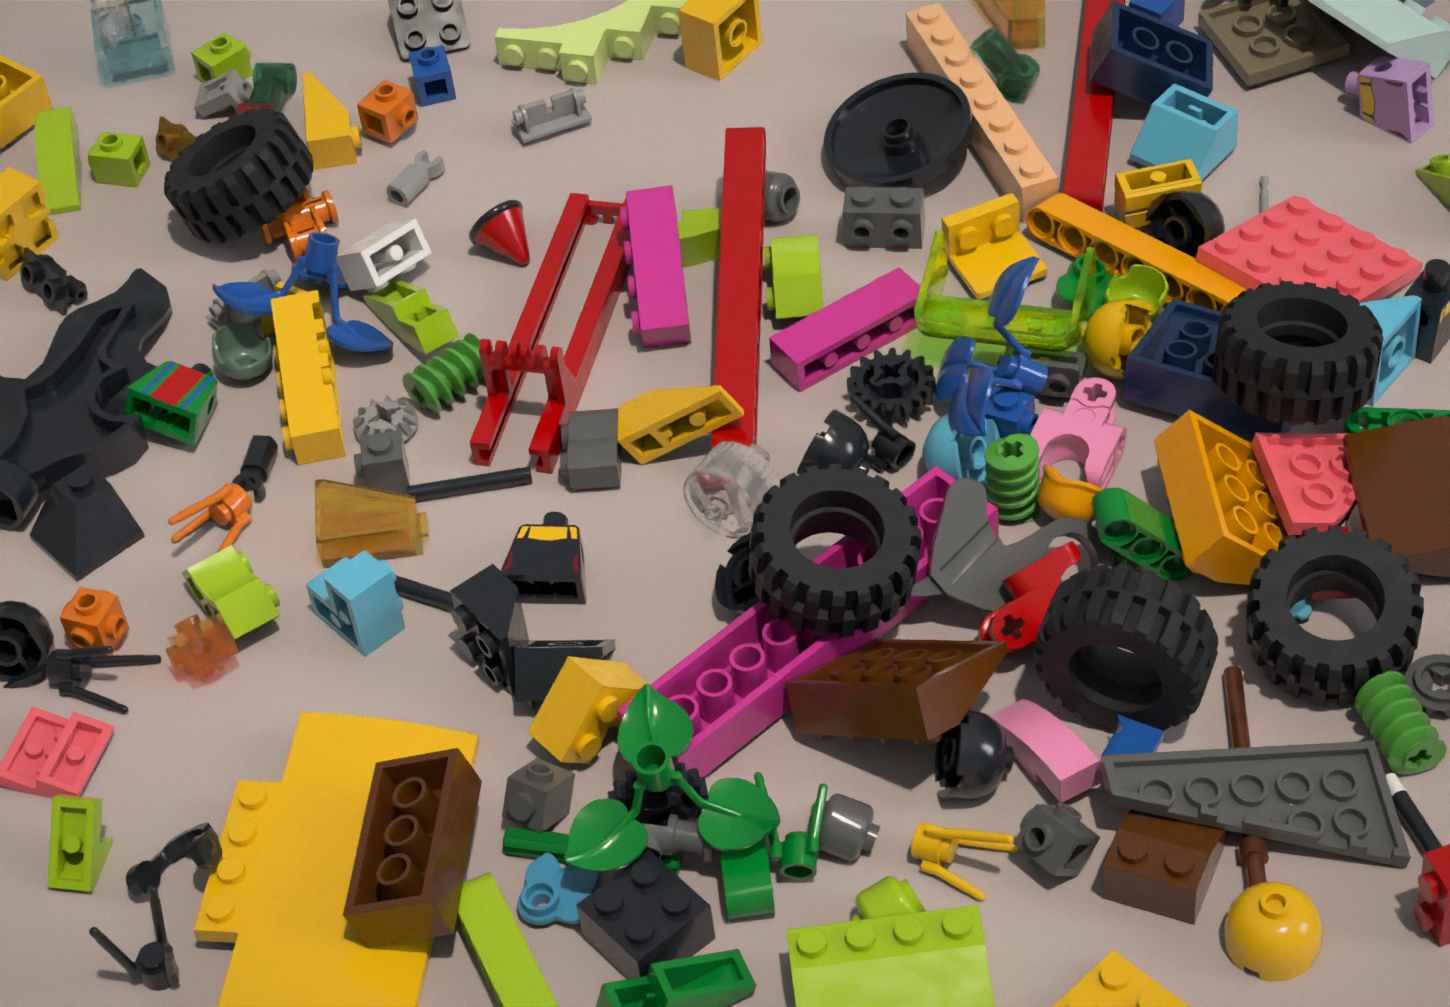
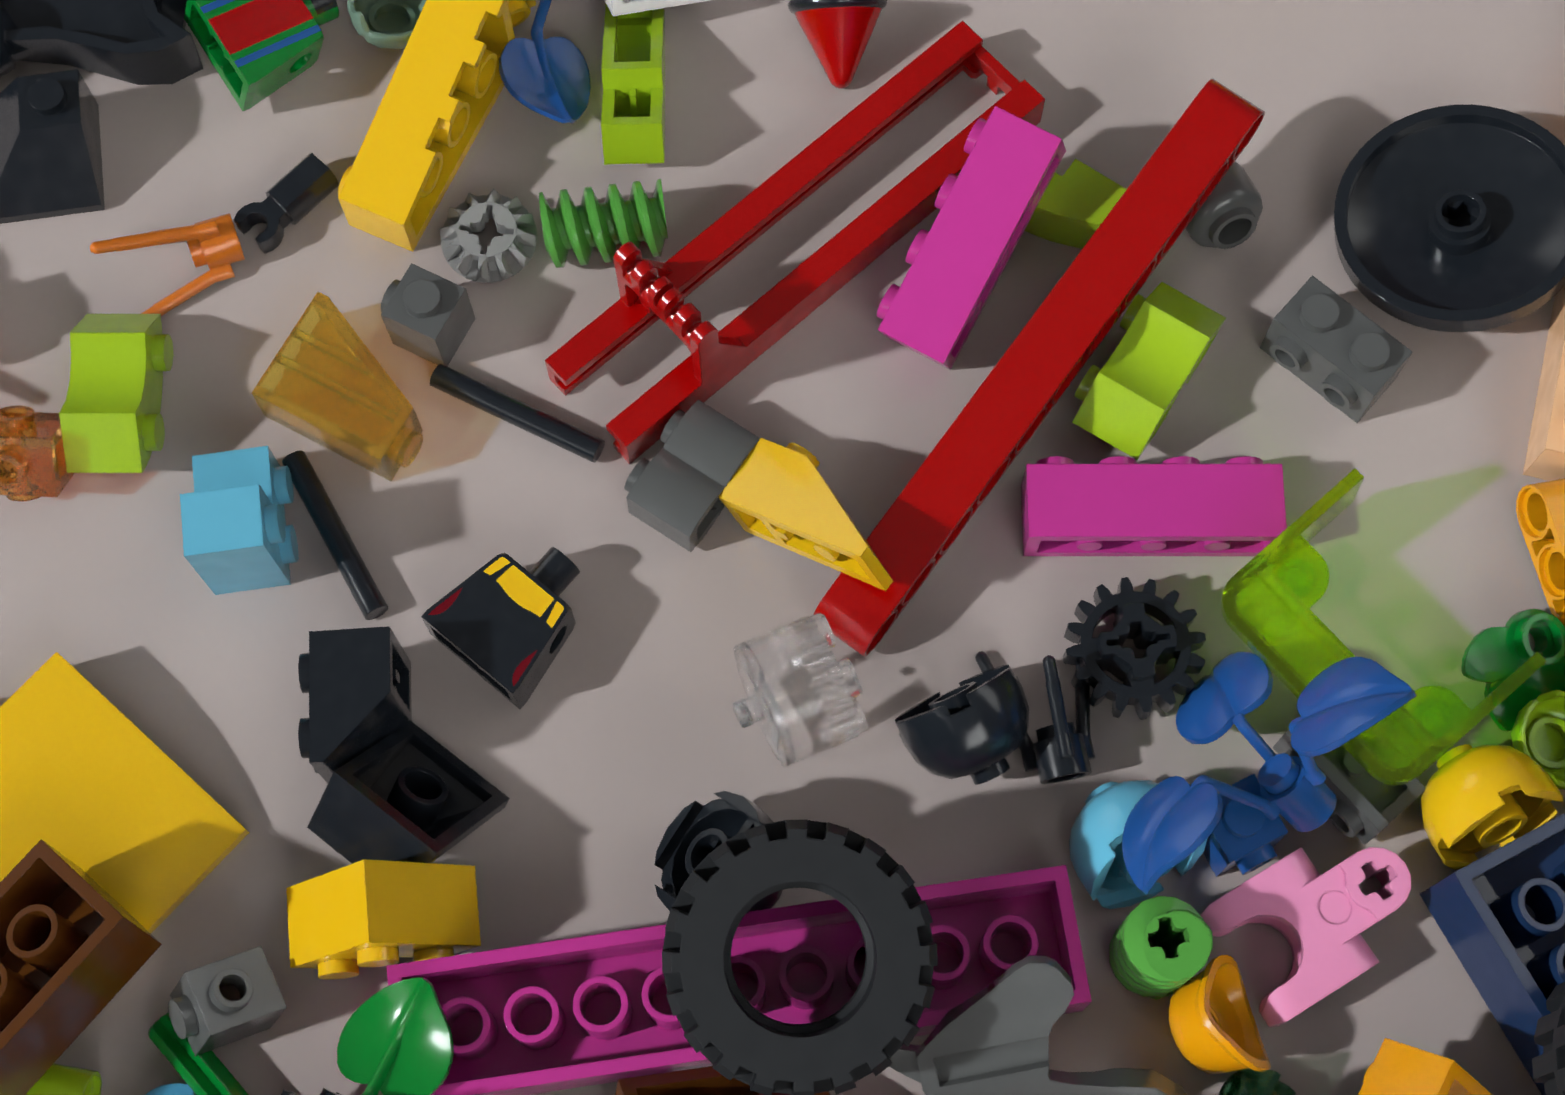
camera: 30 degrees right, 25 degrees up
(986, 242) = (1436, 511): yellow bracket -> none

